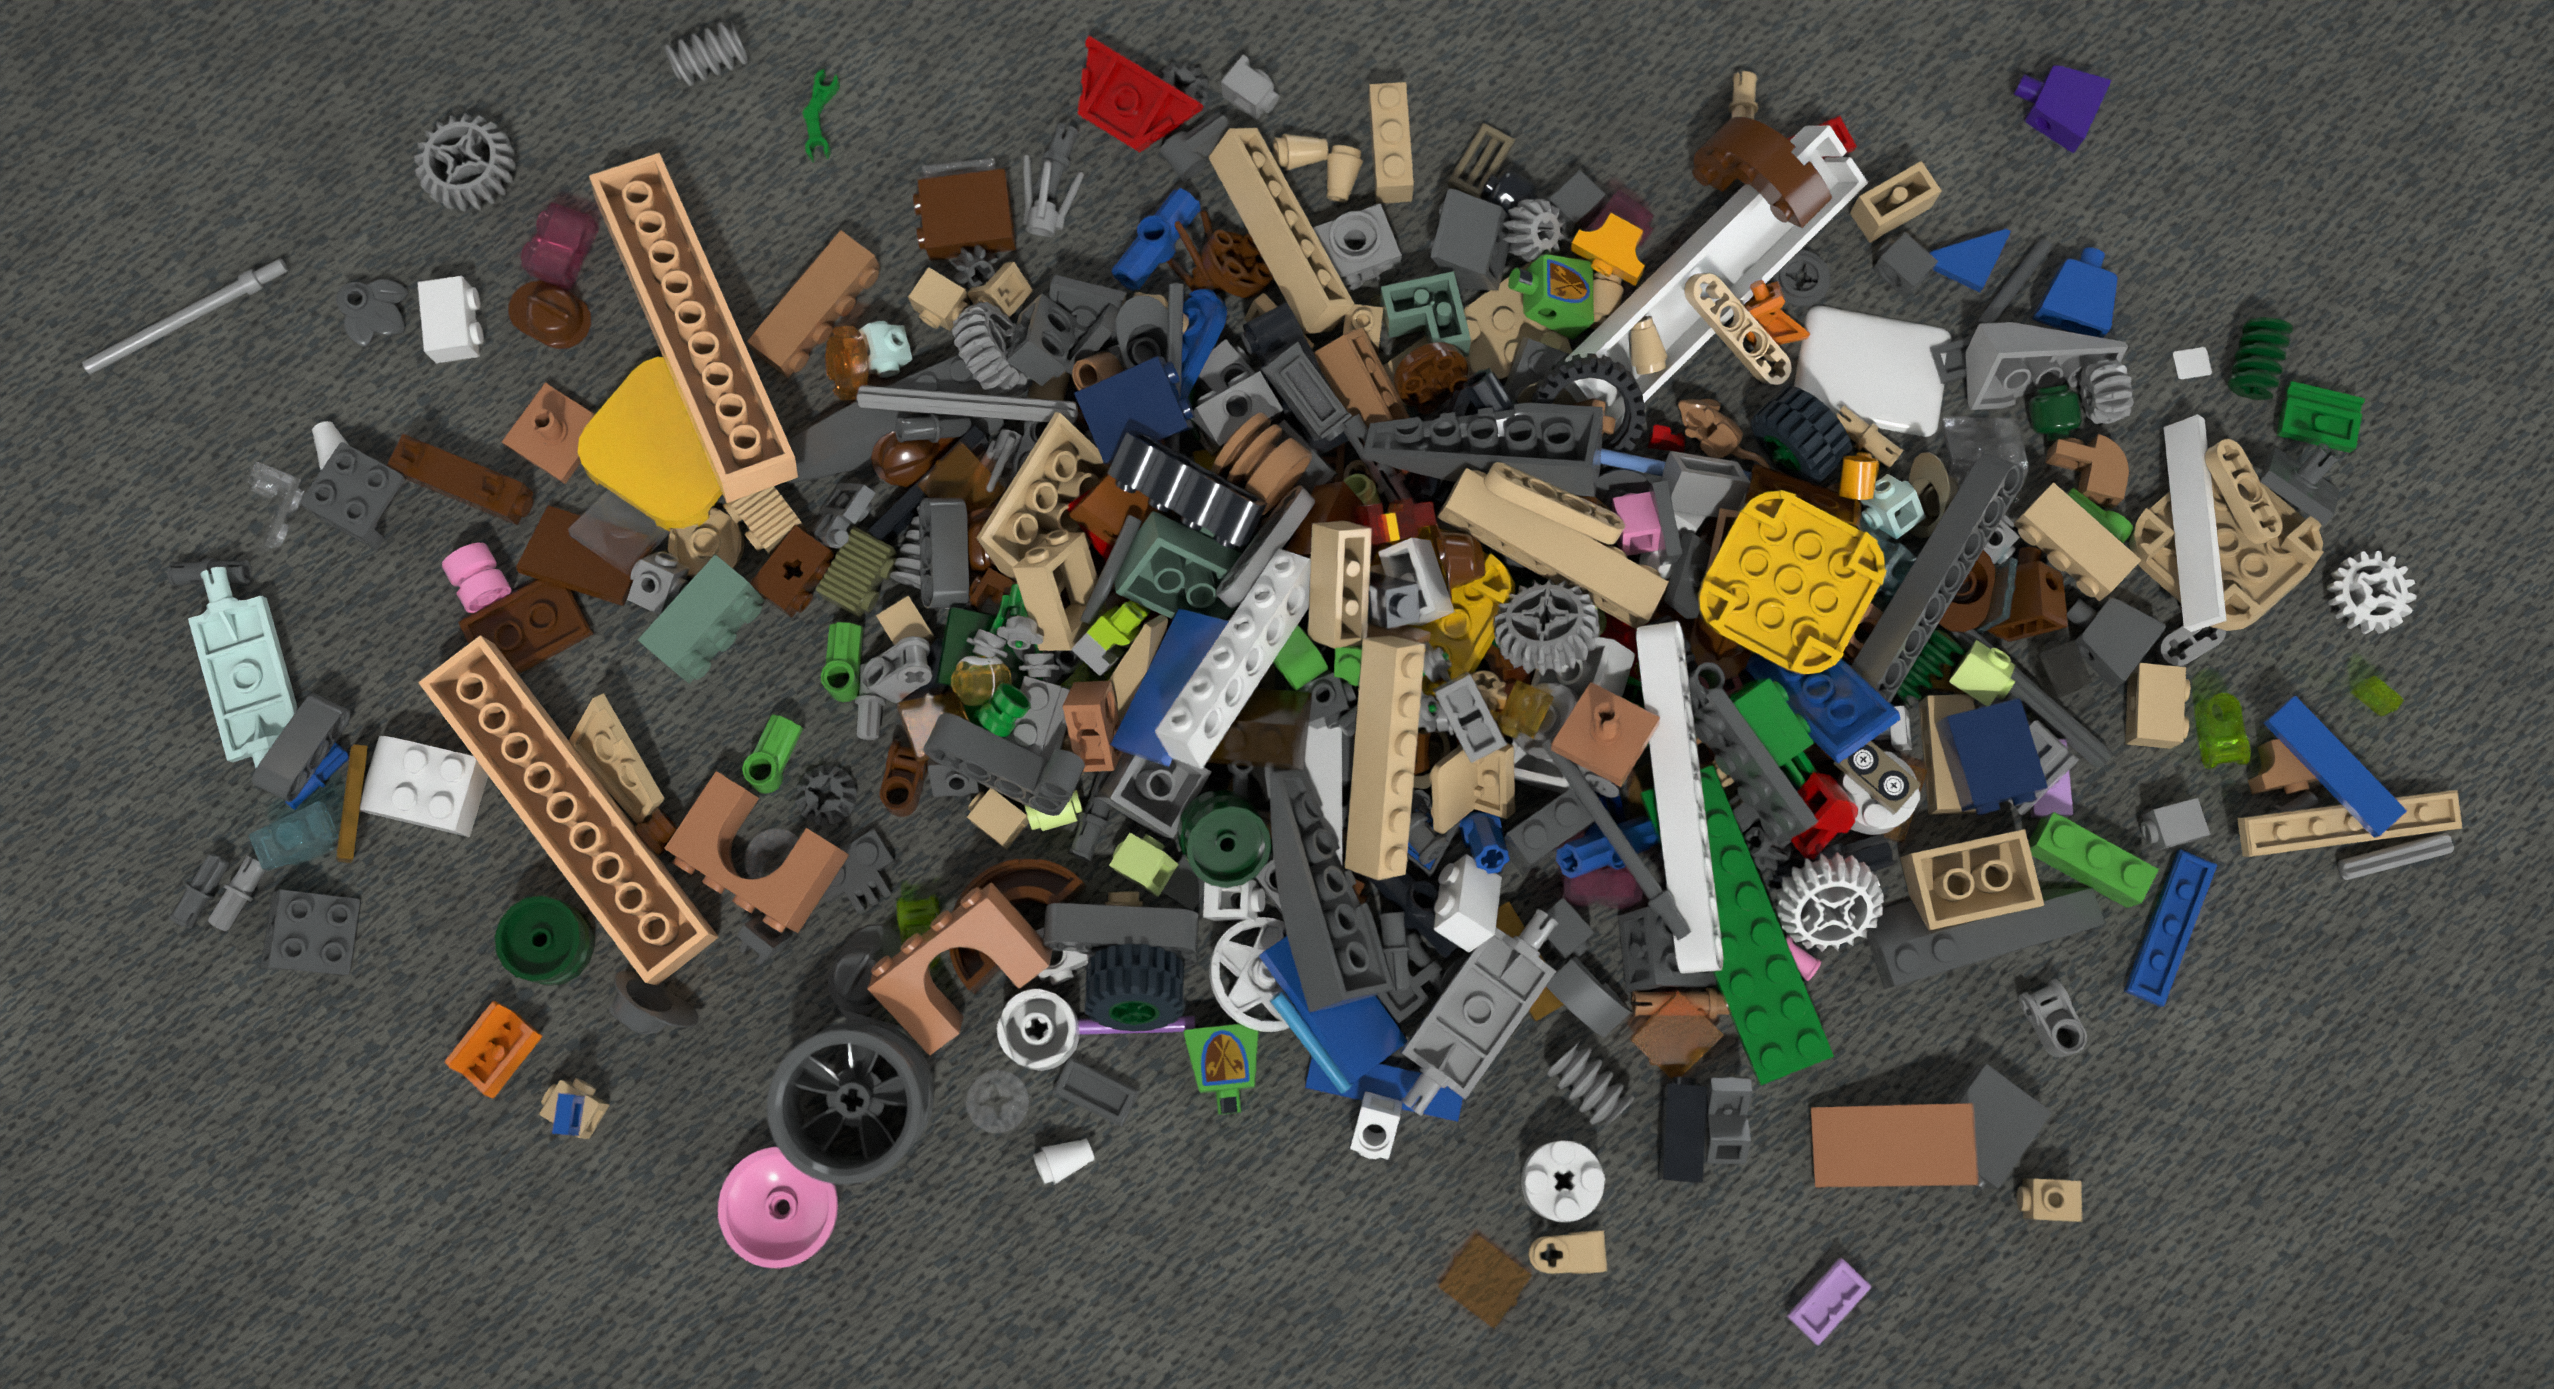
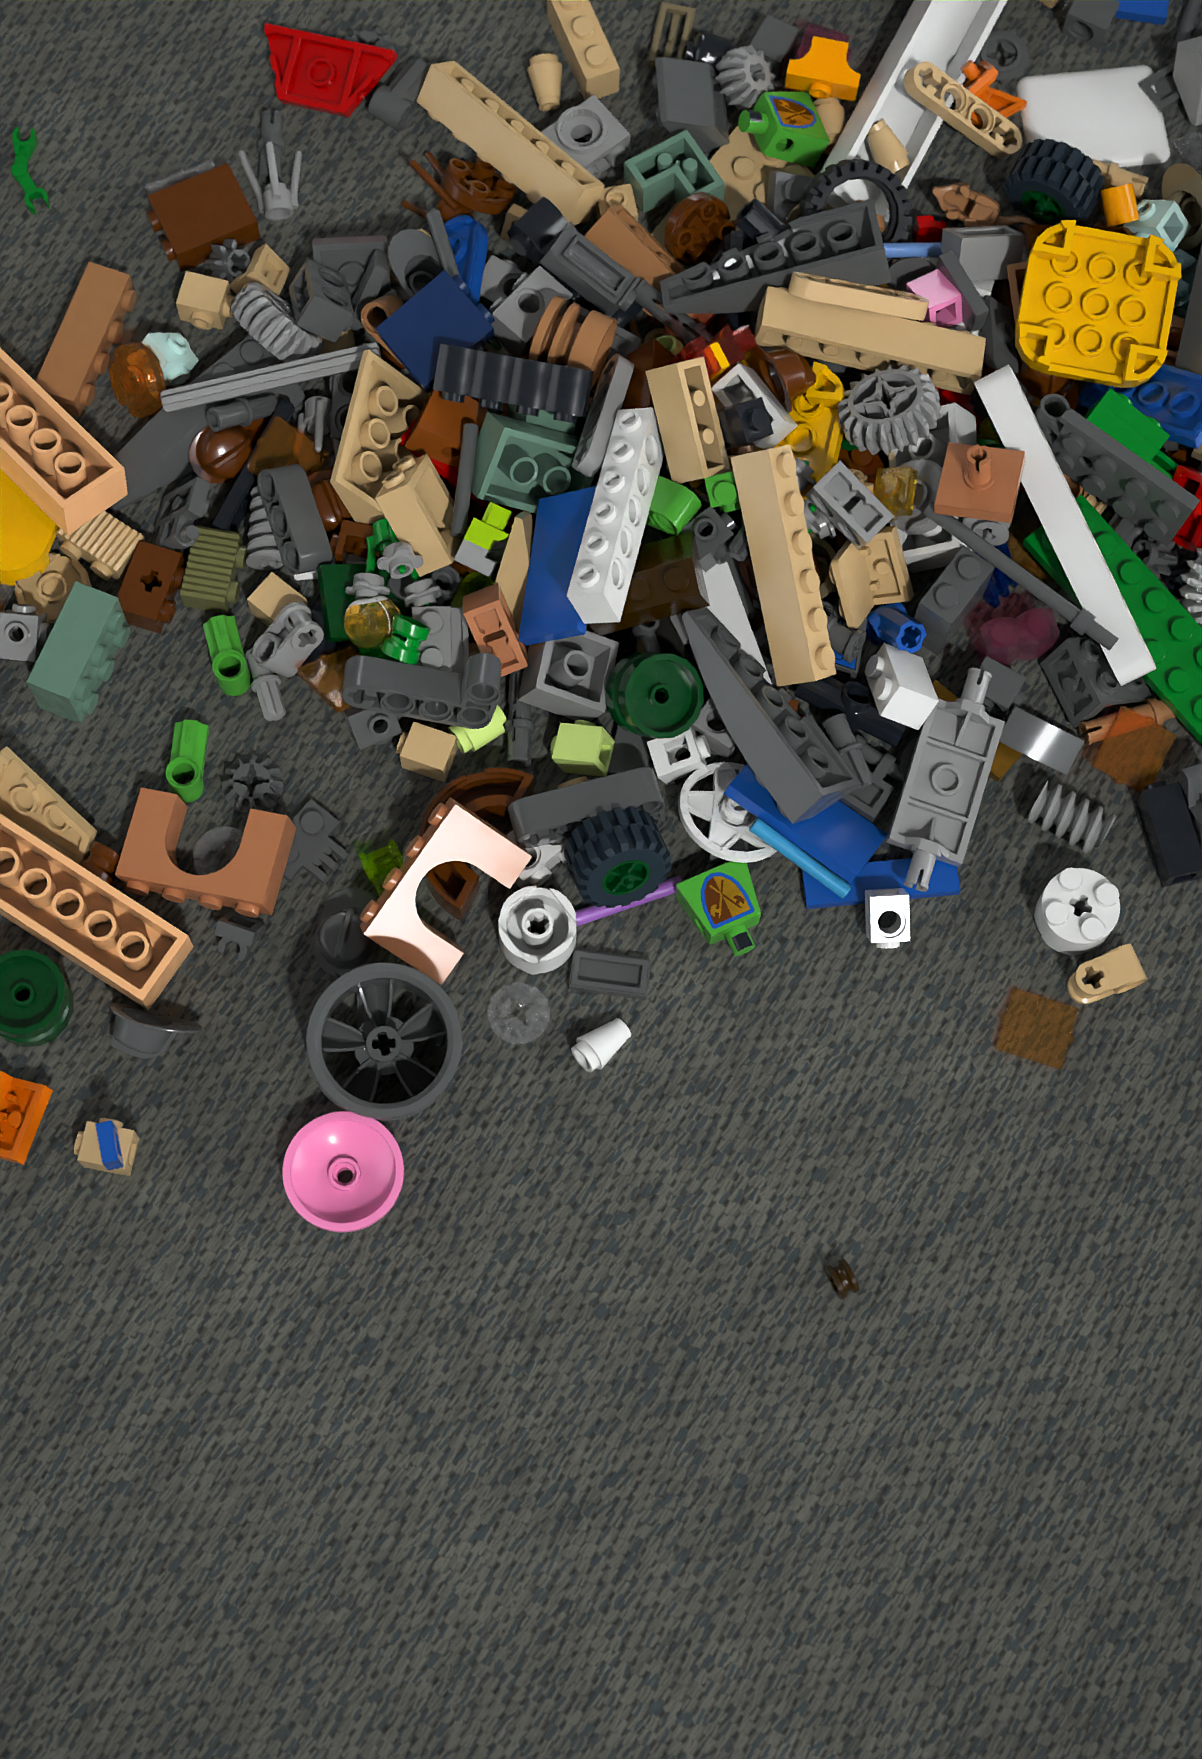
camera: 25 degrees left, 5 degrees down
(903, 773) = (324, 738): reddish brown piece -> none
(1155, 239) = (393, 187): blue piece -> none
(1249, 89) = (433, 32): light grey brick -> none
(1298, 151) = (500, 73): tan cone -> none
(1596, 851) = (1006, 599): blue piece -> none

